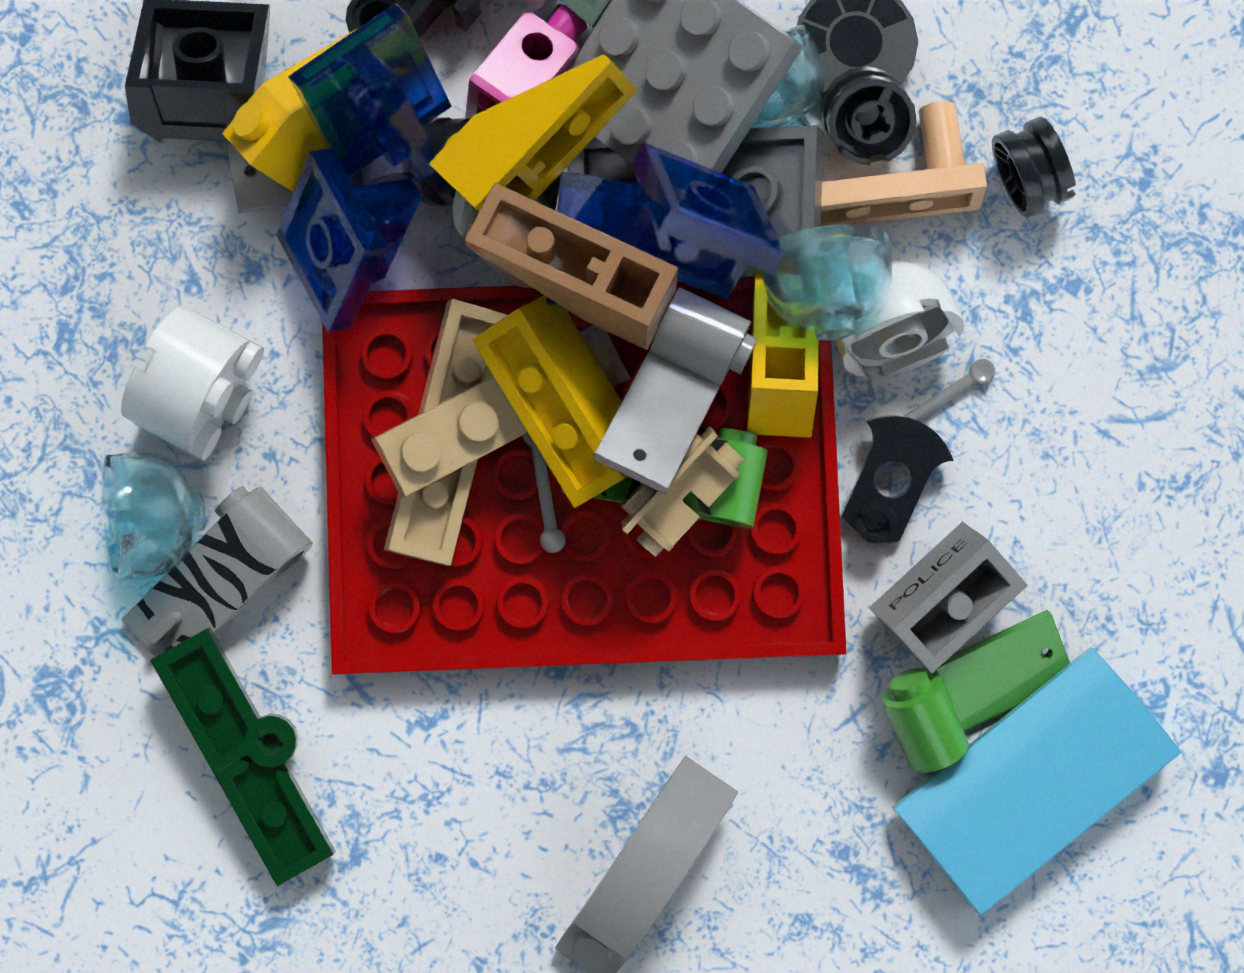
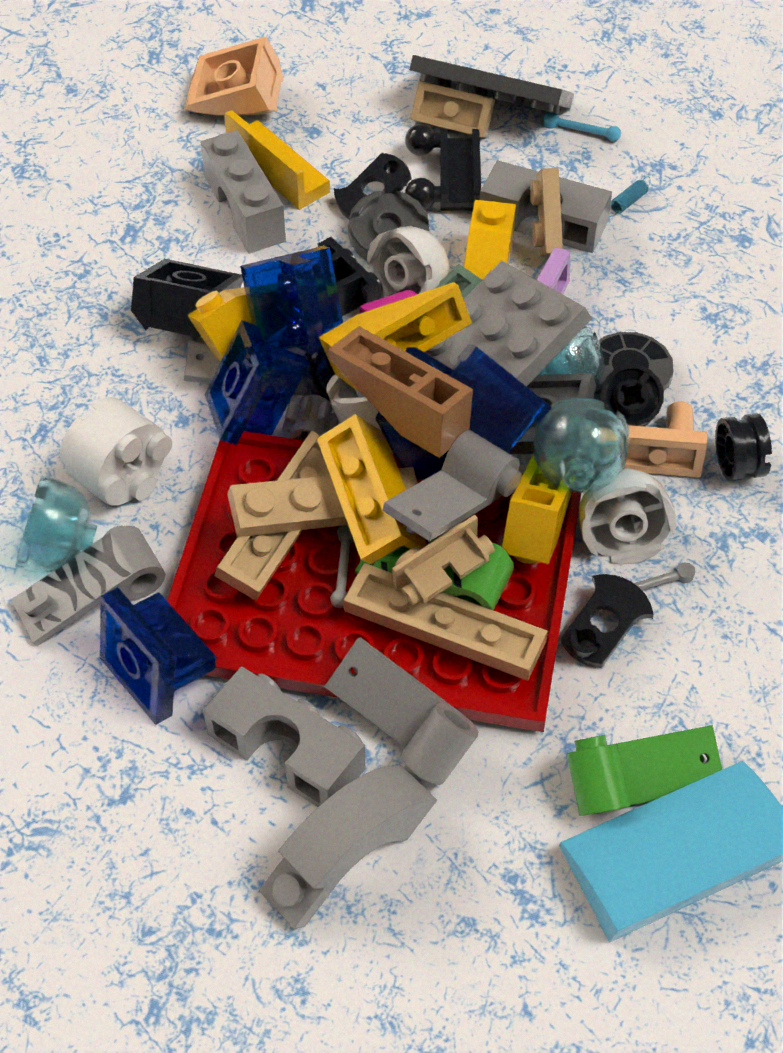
camera: 15 degrees right, 30 degrees down
(245, 755) = (66, 699): dark green hinge -> none
(339, 670) = (150, 650): none -> clear blue bracket
(437, 256) = (309, 415): none -> light grey gear
(482, 719) = (256, 711): none -> light grey arch
(707, 554) = (448, 623): none -> tan plate
(715, 703) = (405, 710): none -> light grey door
(948, 596) = (633, 693): light grey brick -> none

